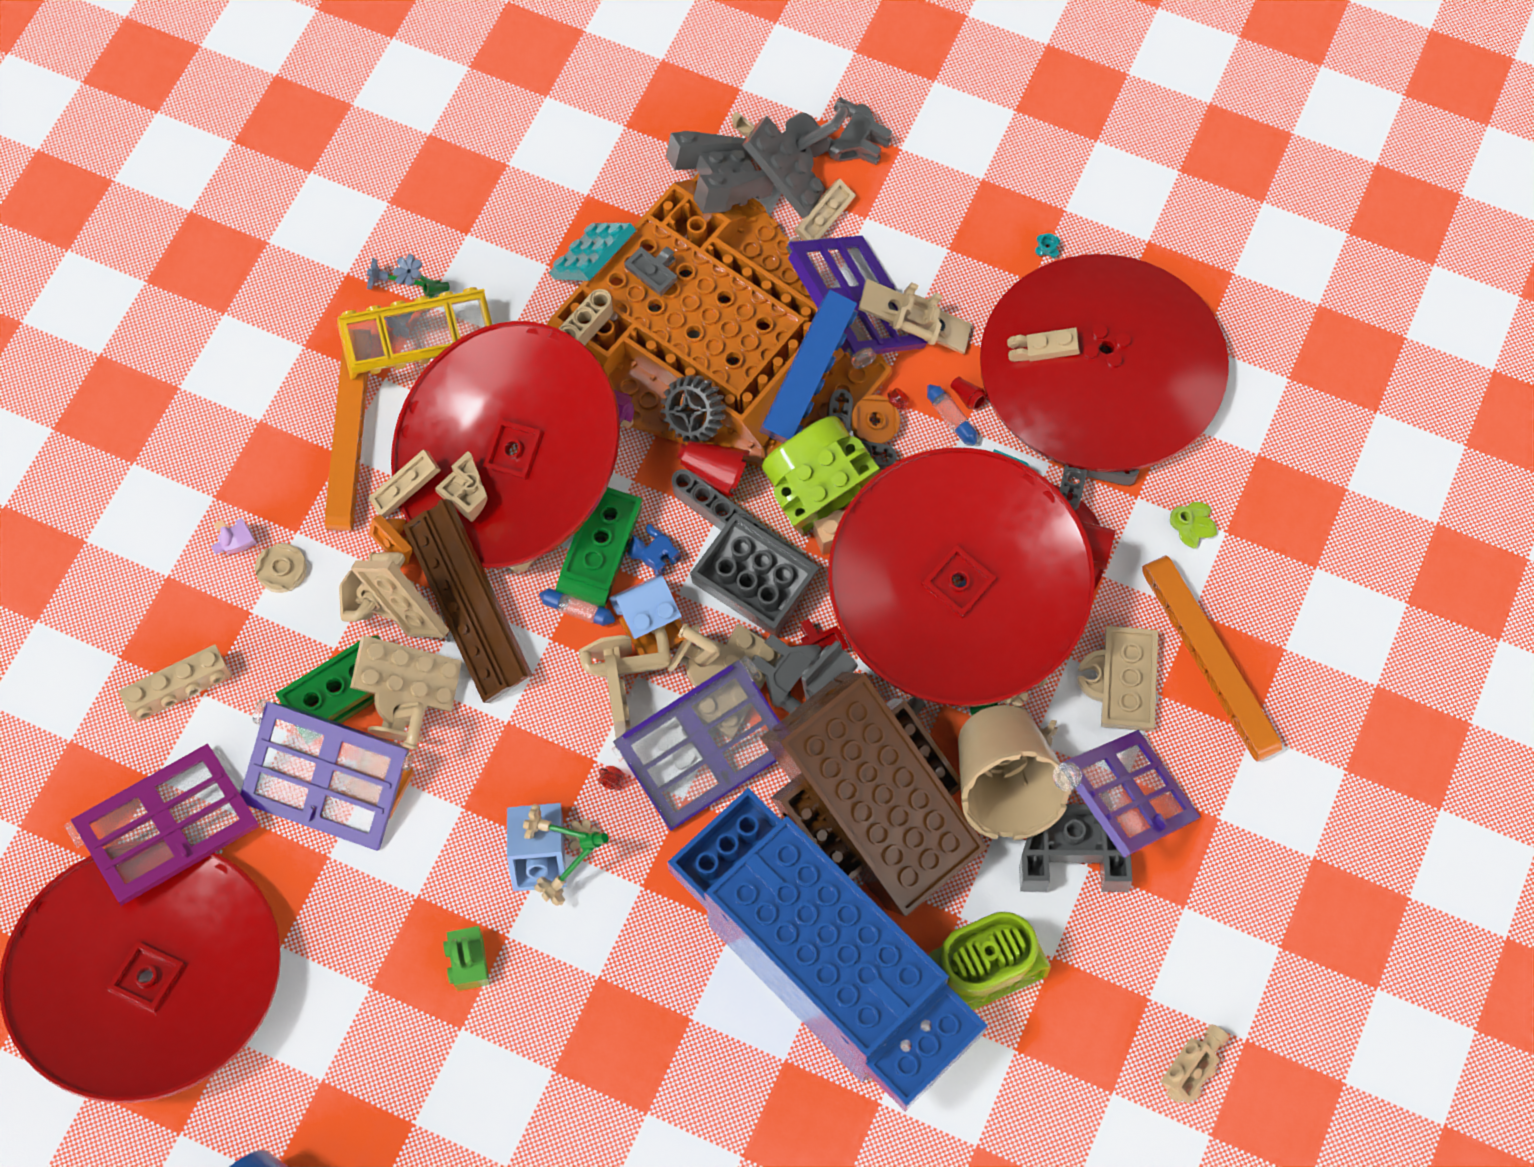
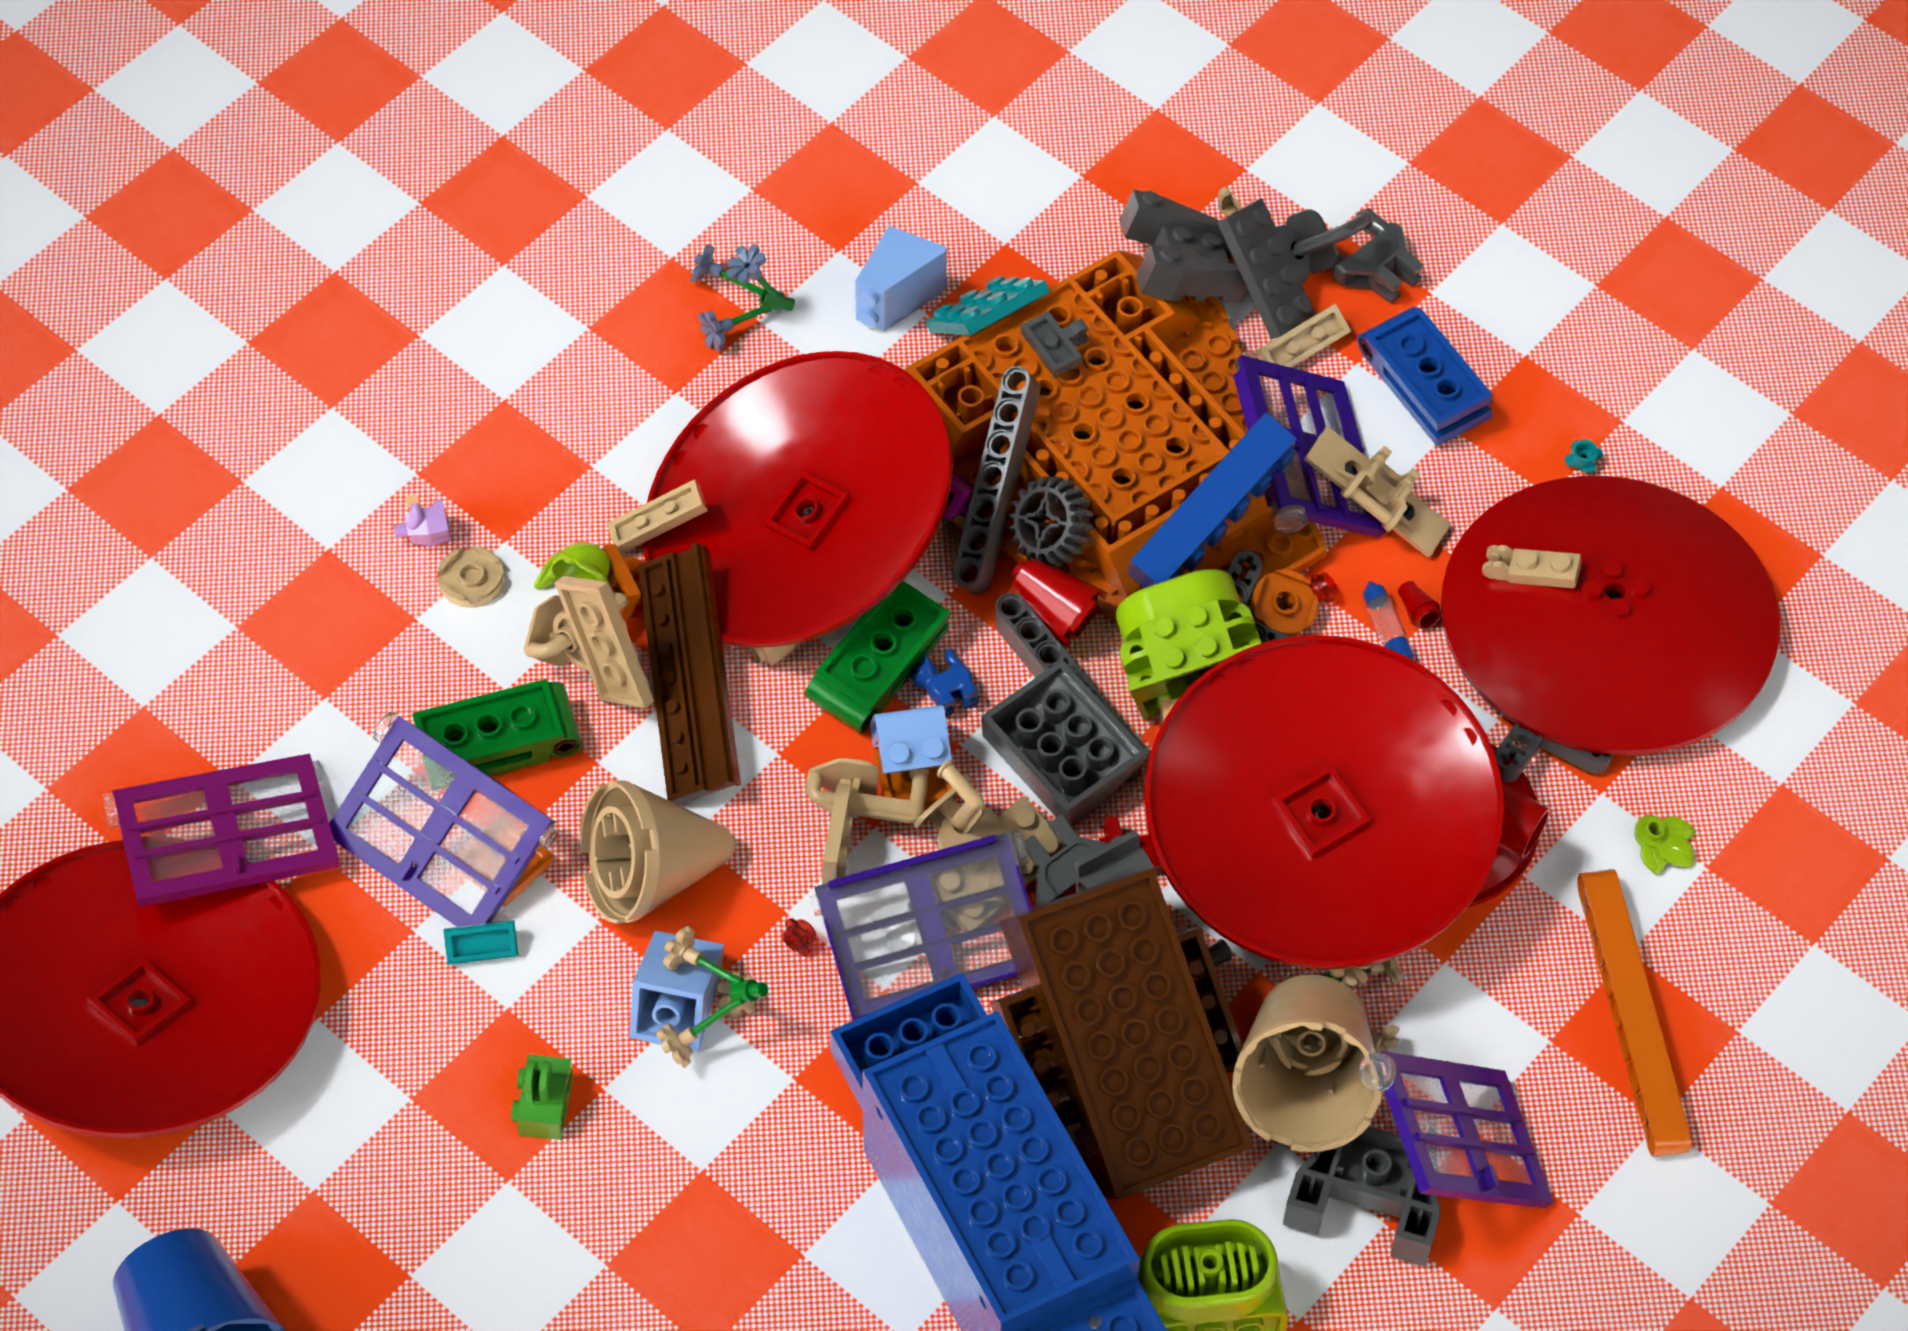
camera: 15 degrees right, 10 degrees down
(175, 683) = (294, 672): tan brick -> none
(346, 450) = (610, 436): orange beam -> none
(358, 538) = (576, 560): none -> lime hair
(382, 852) = (481, 942): none -> teal tile
(404, 686) = (576, 741): tan plate -> none
(409, 330) = (723, 335): window -> none
(464, 488) = (730, 540): tan slope -> none
(481, 750) = (645, 849): none -> tan cone
(520, 246) = (899, 278): none -> light blue slope
(577, 607) = (825, 723): piece -> none
(589, 312) = (956, 375): tan beam -> none
(636, 378) = (1000, 495): none -> dark grey beam
(920, 214) = (1426, 375): none -> blue hinge
(1124, 678) = (1508, 1003): tan plate -> none

